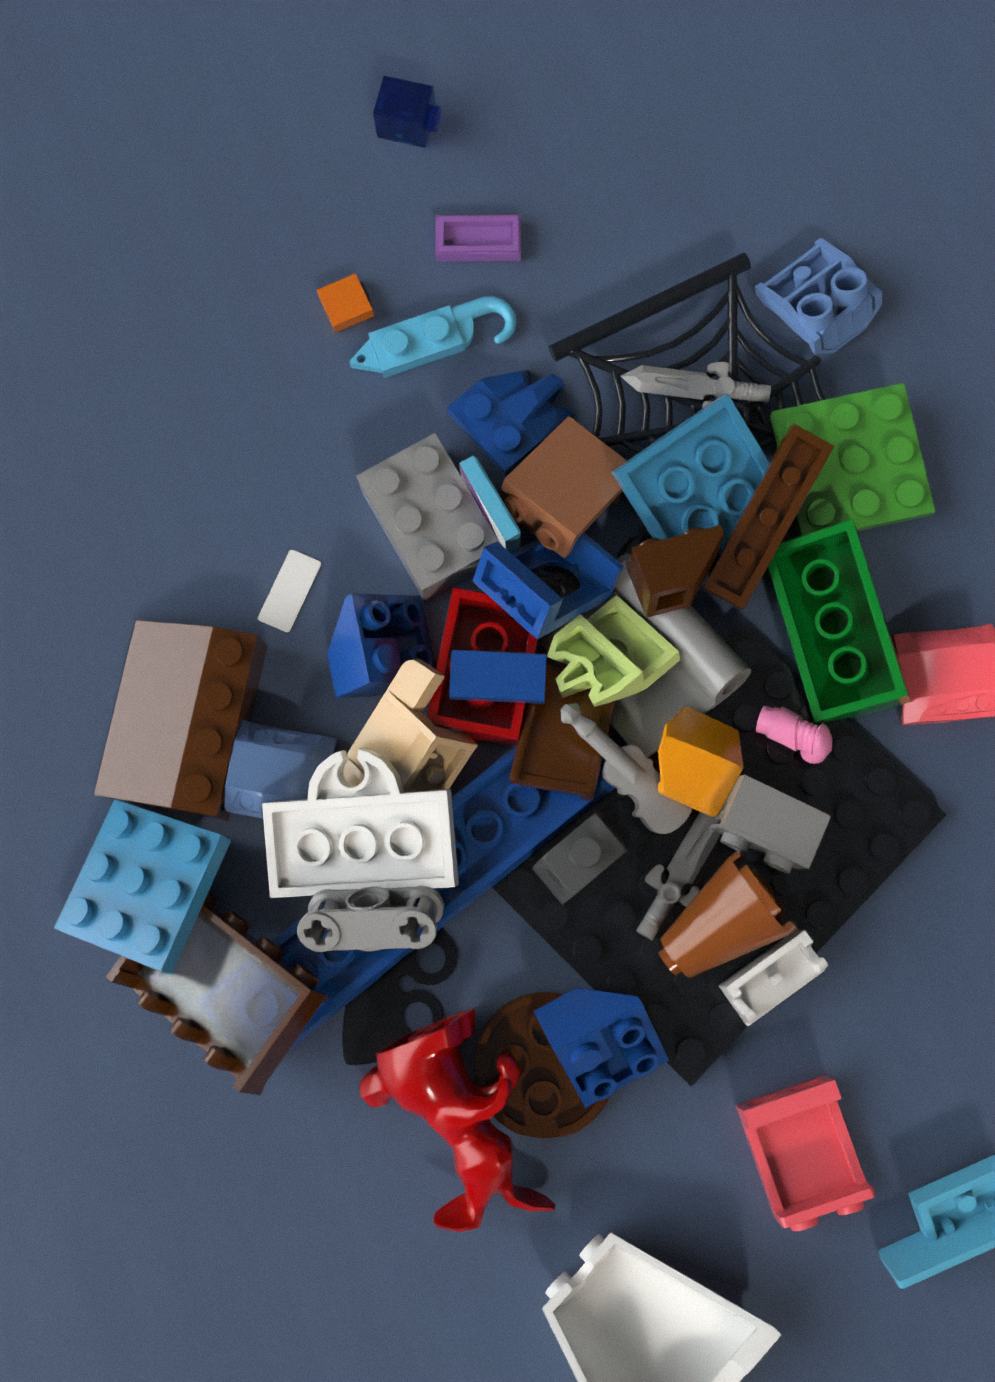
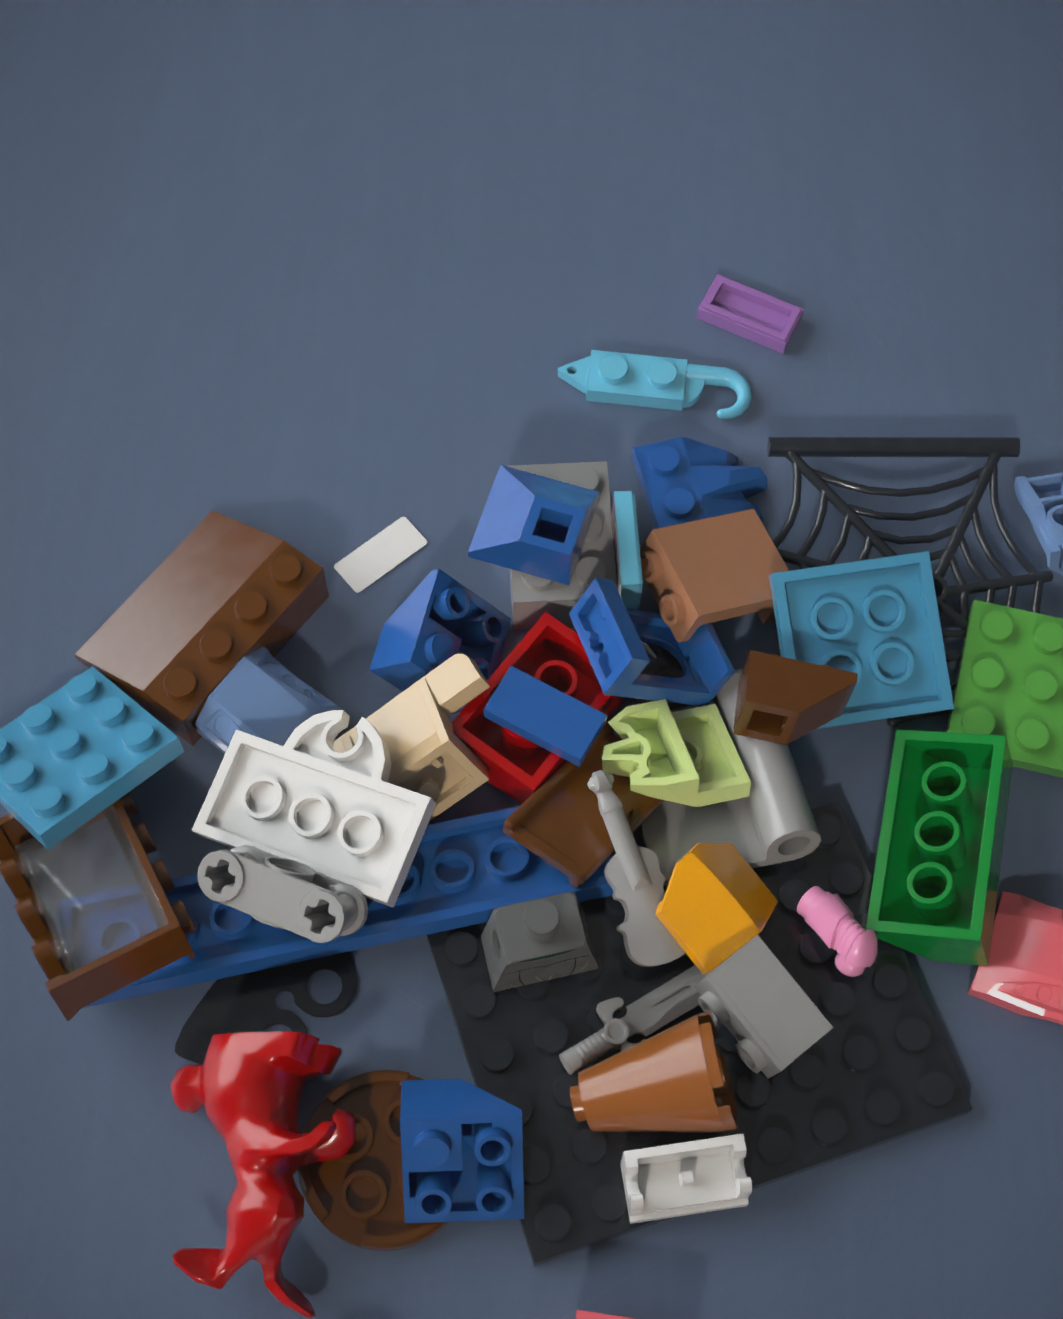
camera: 20 degrees right, 15 degrees down
(345, 303) = (583, 314): orange tile -> none
(406, 112) = (735, 170): clear blue brick -> none
(408, 520) = (534, 525): none -> blue slope
(695, 384) = (903, 538): light grey sword -> none
(767, 516) = (914, 694): reddish brown plate -> none

